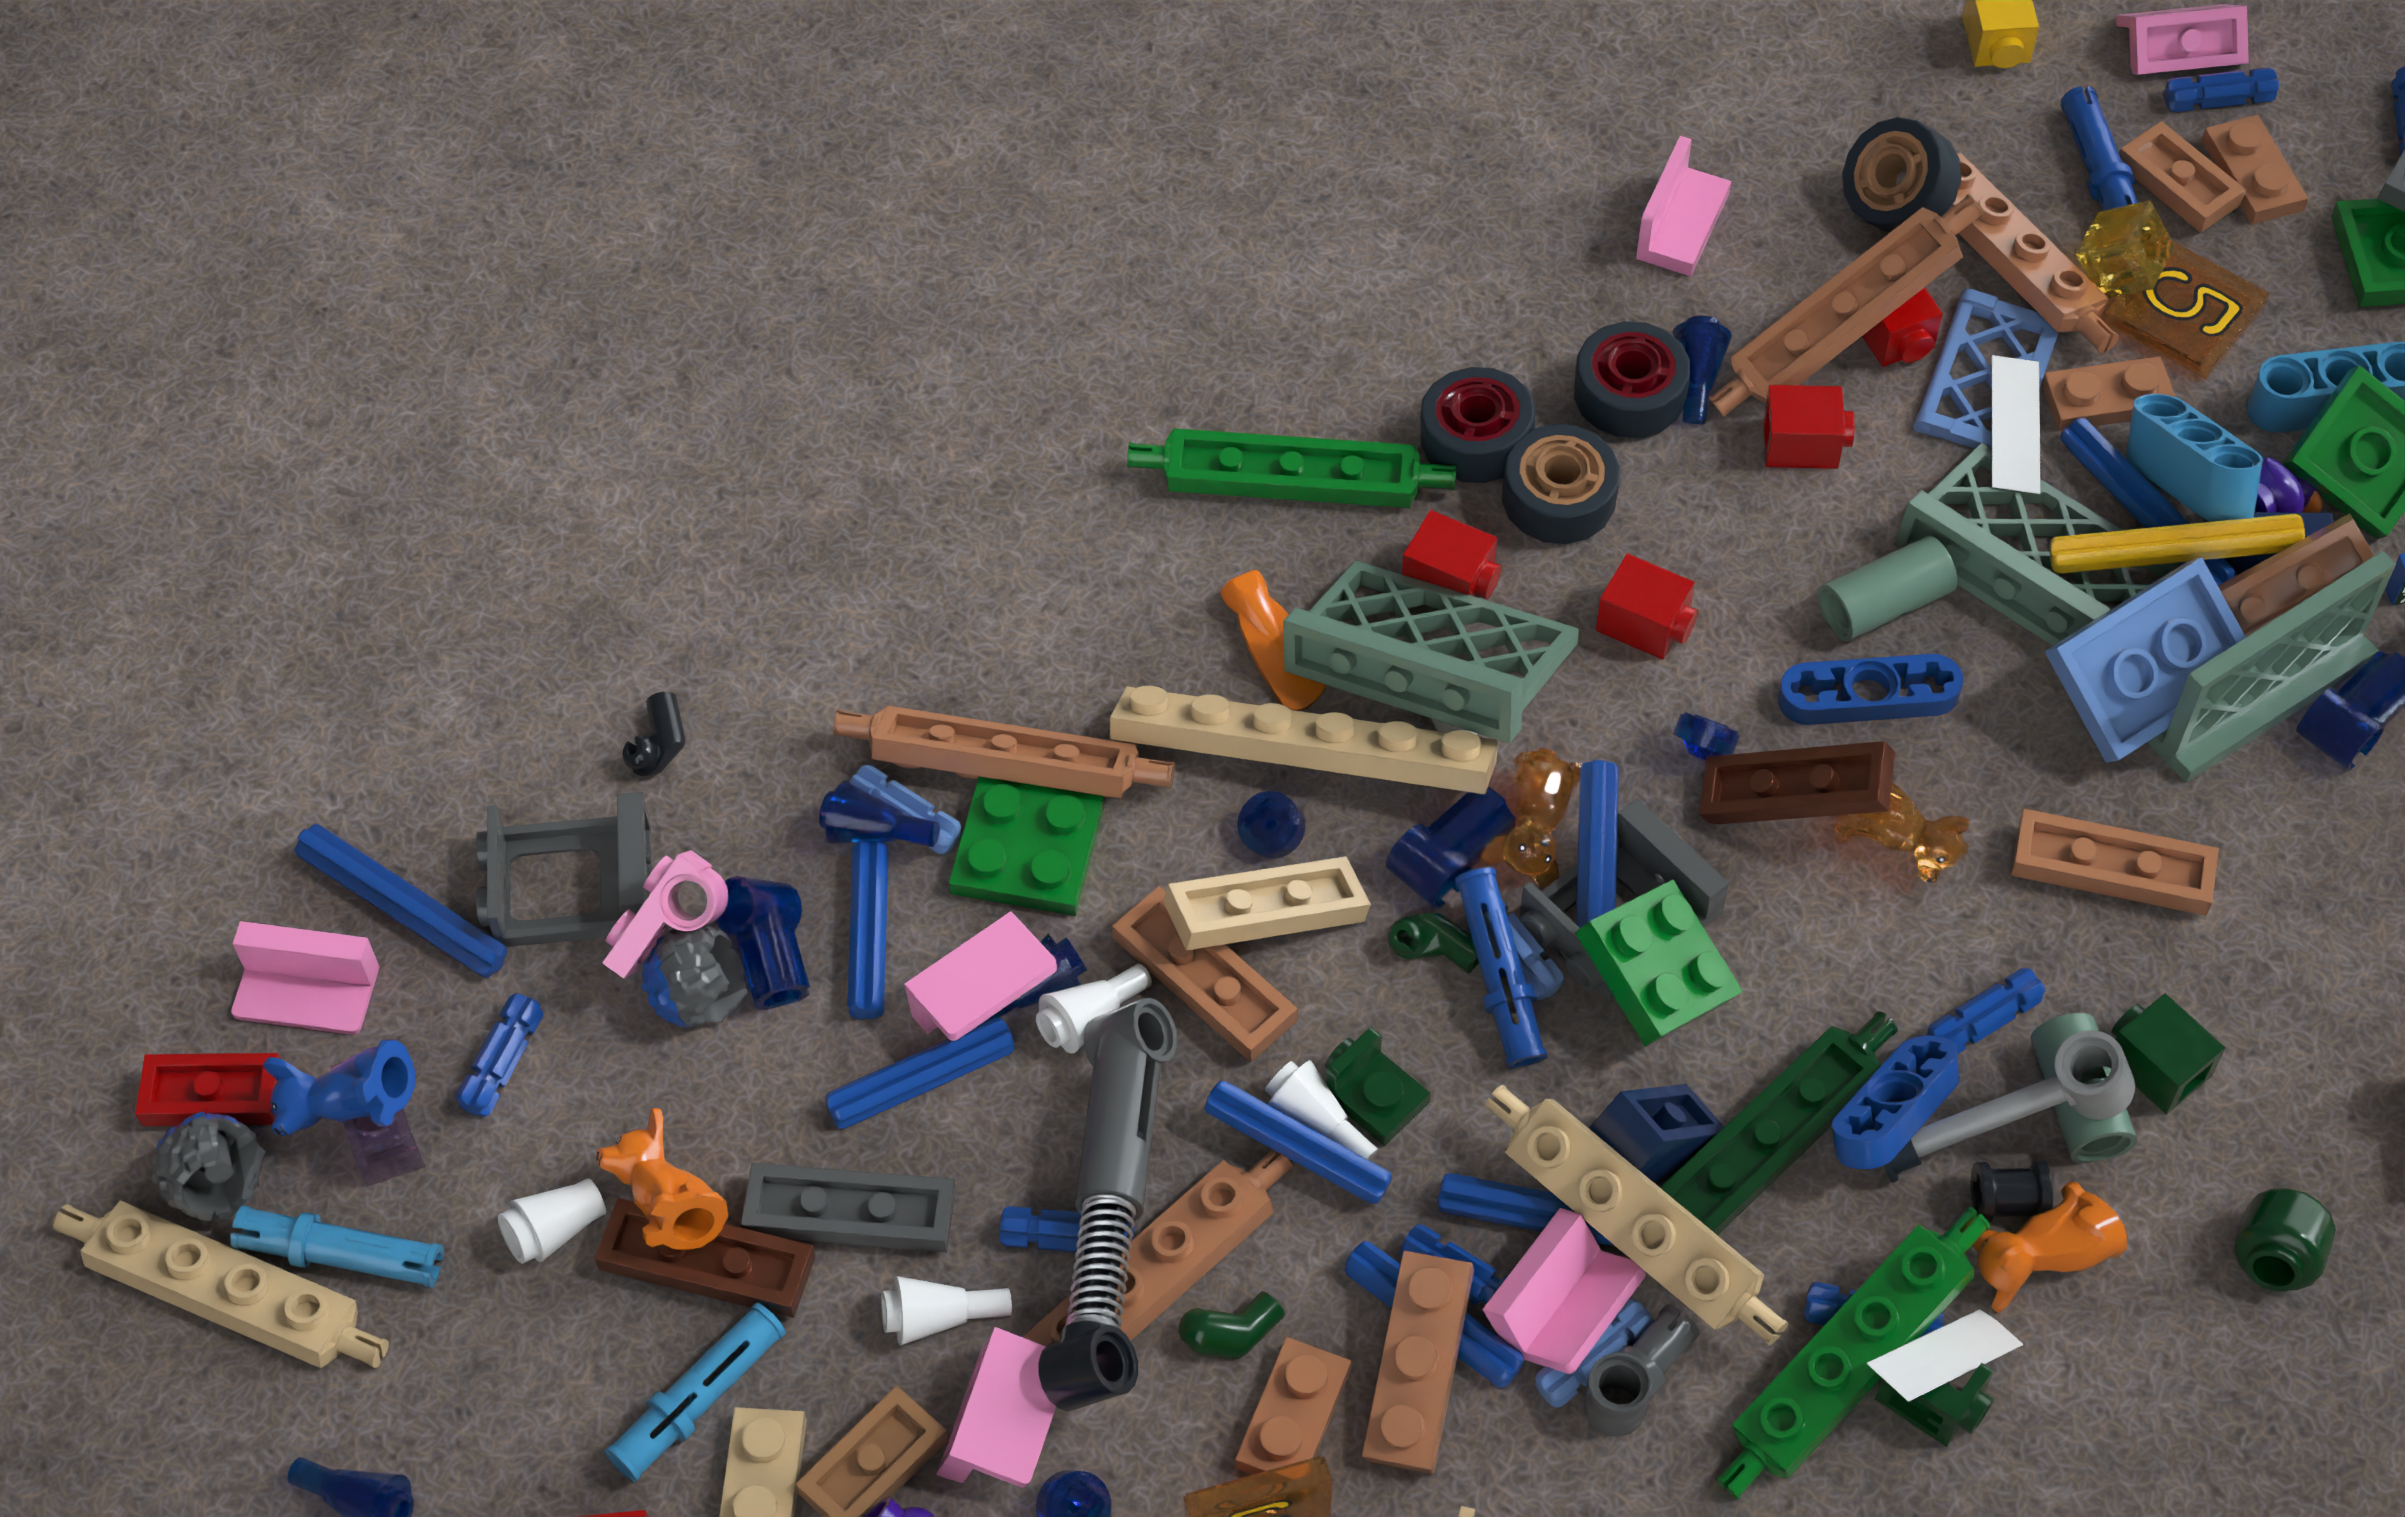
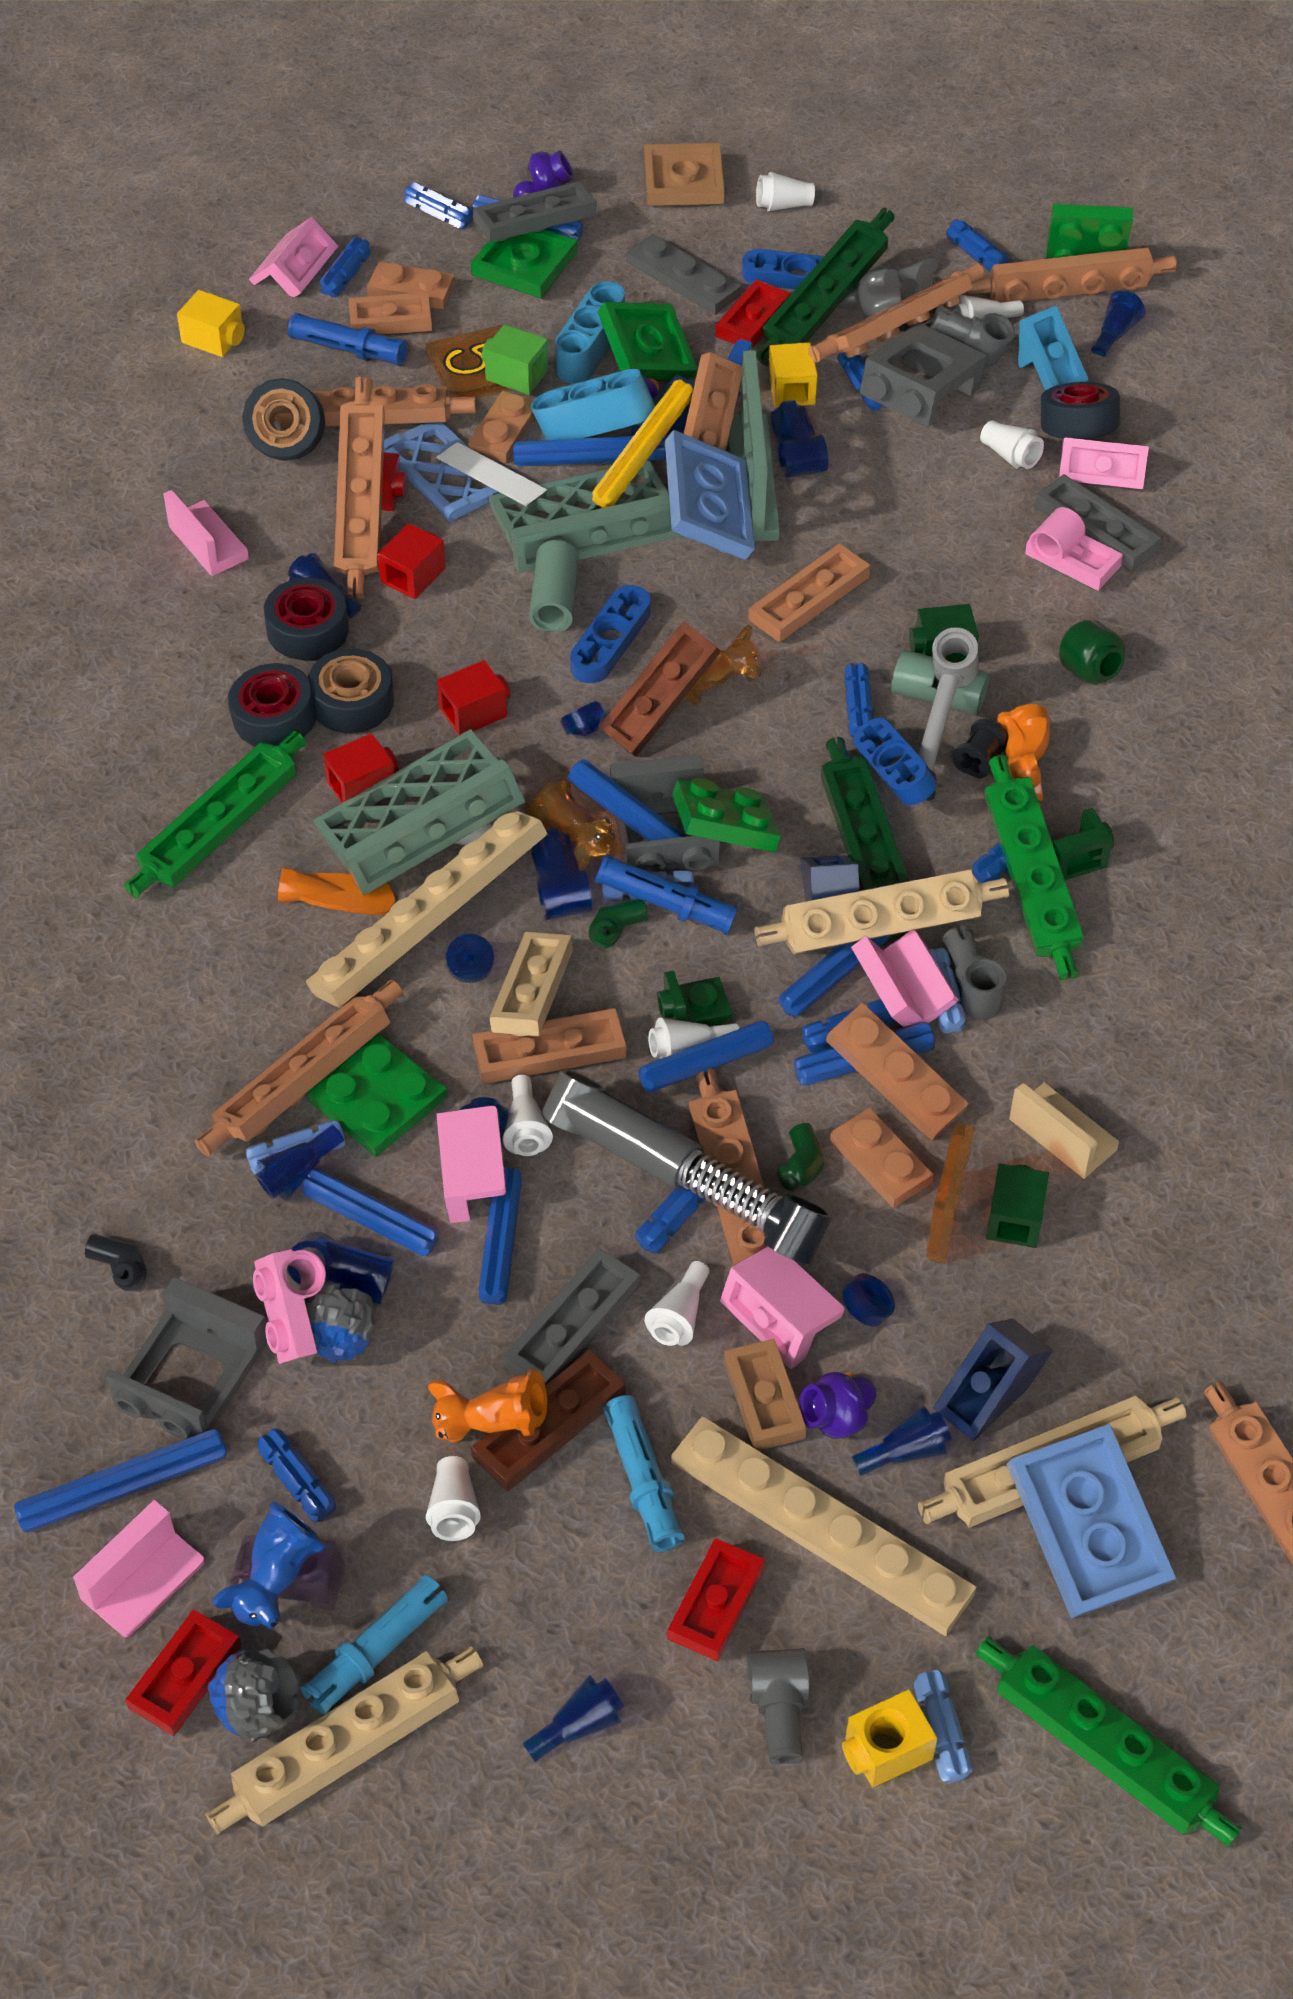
camera: 60 degrees left, 5 degrees down
(1944, 1354) = (1066, 826): white sticker -> none
(2125, 249) = (424, 357): clear yellow brick -> none
(2206, 338) = (515, 359): none -> bright green brick

